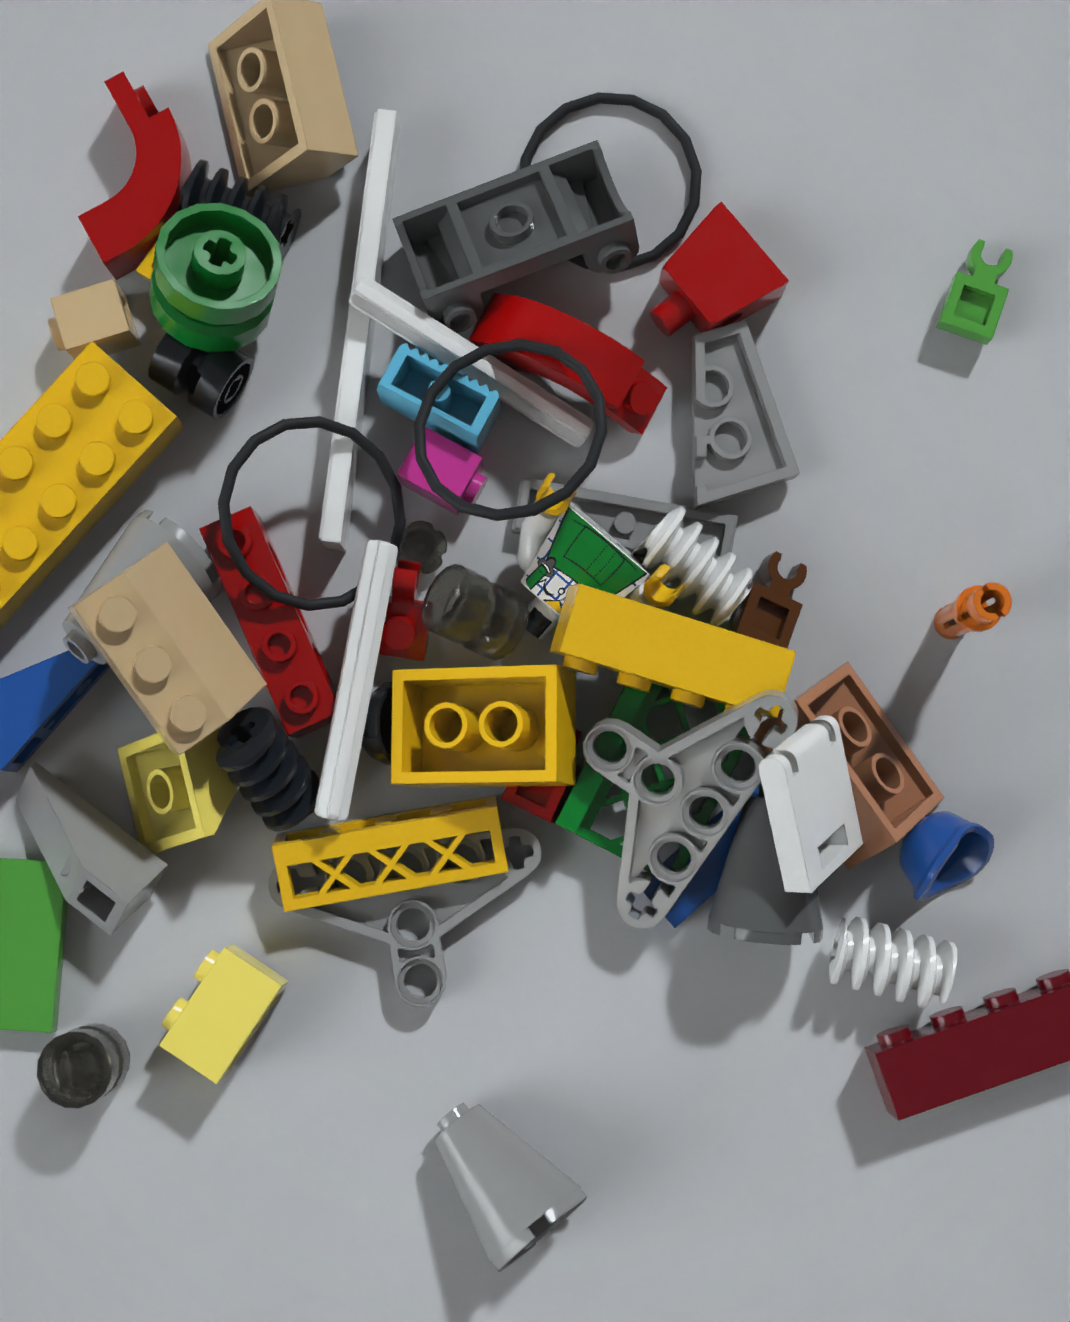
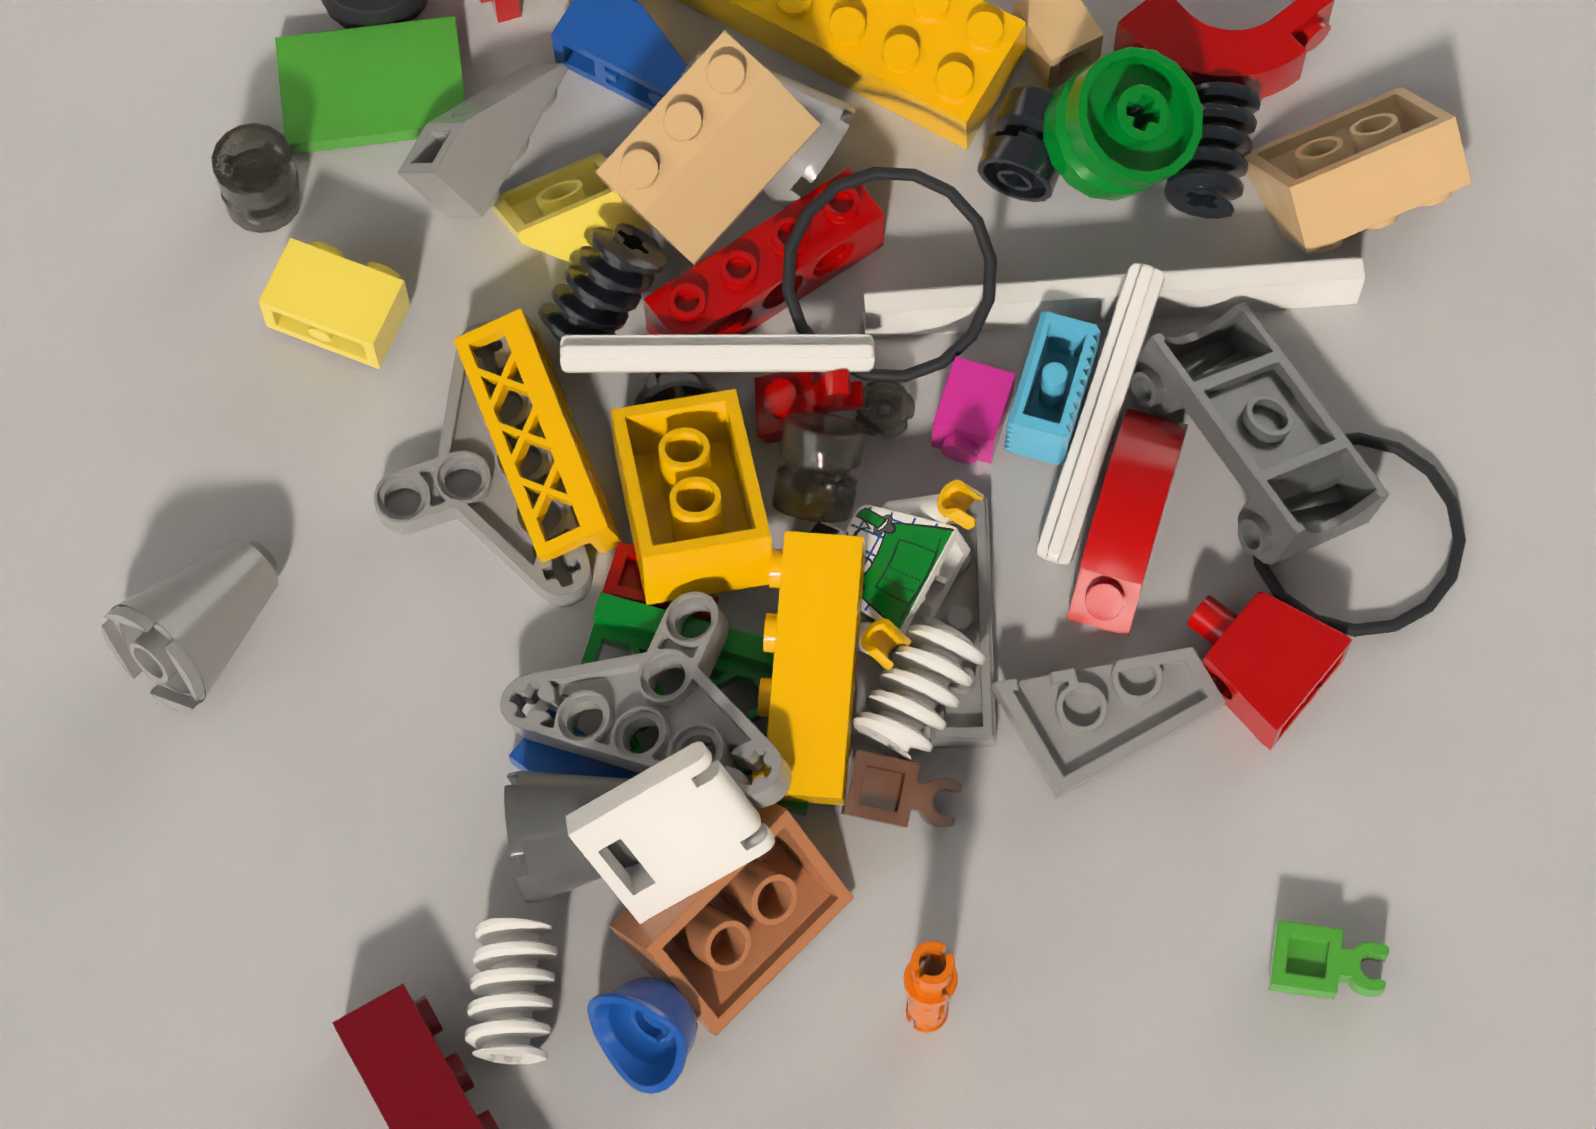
camera: 80 degrees right, 15 degrees down
(548, 501) = (979, 511): black piece -> none

